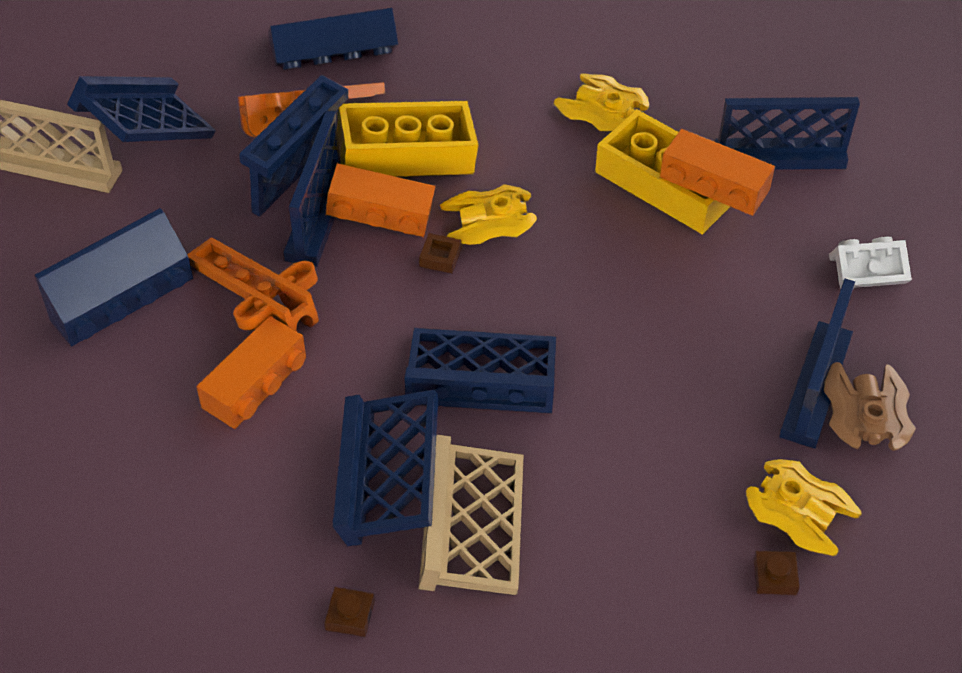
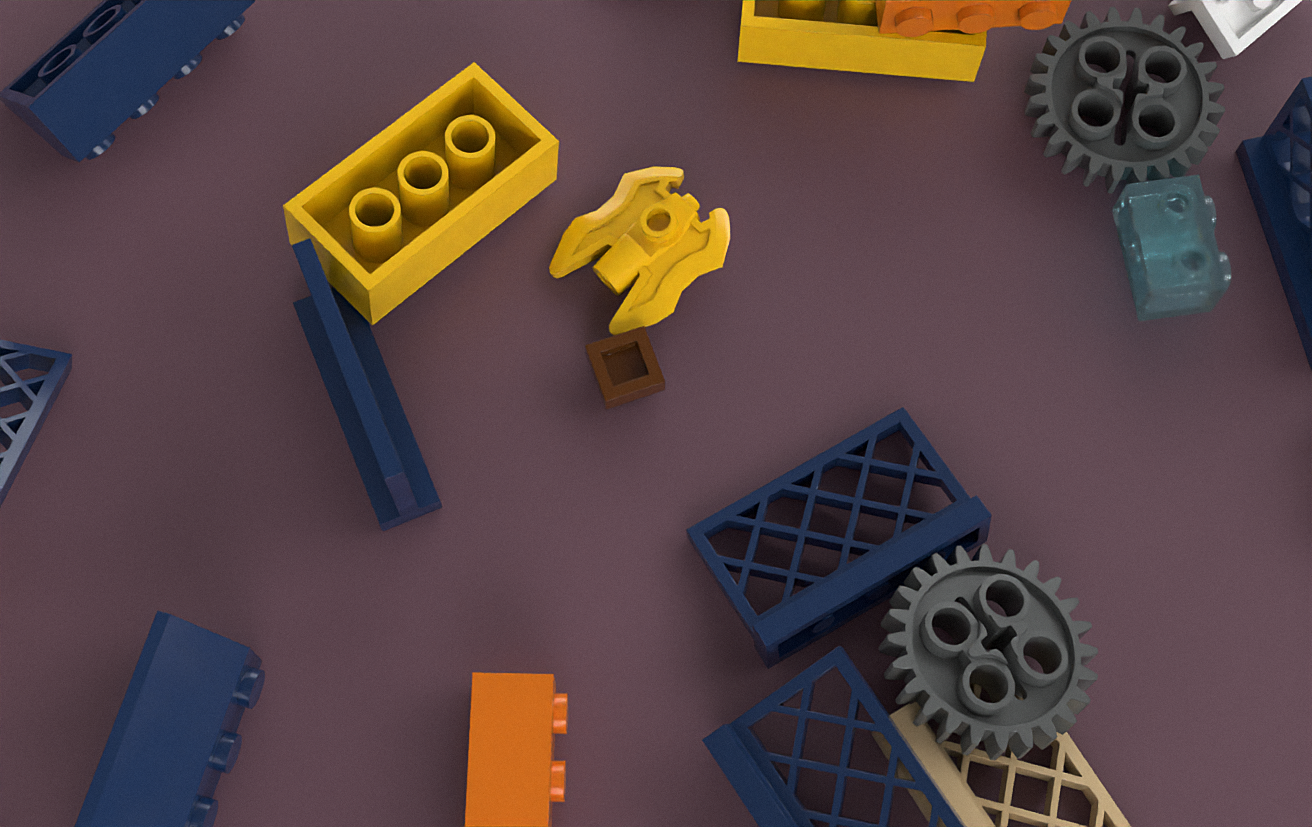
camera: 35 degrees left, 20 degrees up
(259, 286) = (391, 621): orange piece -> none
(262, 109) = (150, 263): orange piece -> none
(283, 147) = (257, 314): dark blue fence -> none
(380, 200) = (466, 334): orange brick -> none
(534, 441) = (940, 673): none -> dark grey gear
(741, 341) = (1171, 247): none -> clear light blue brick
(769, 274) = (1179, 110): none -> dark grey gear

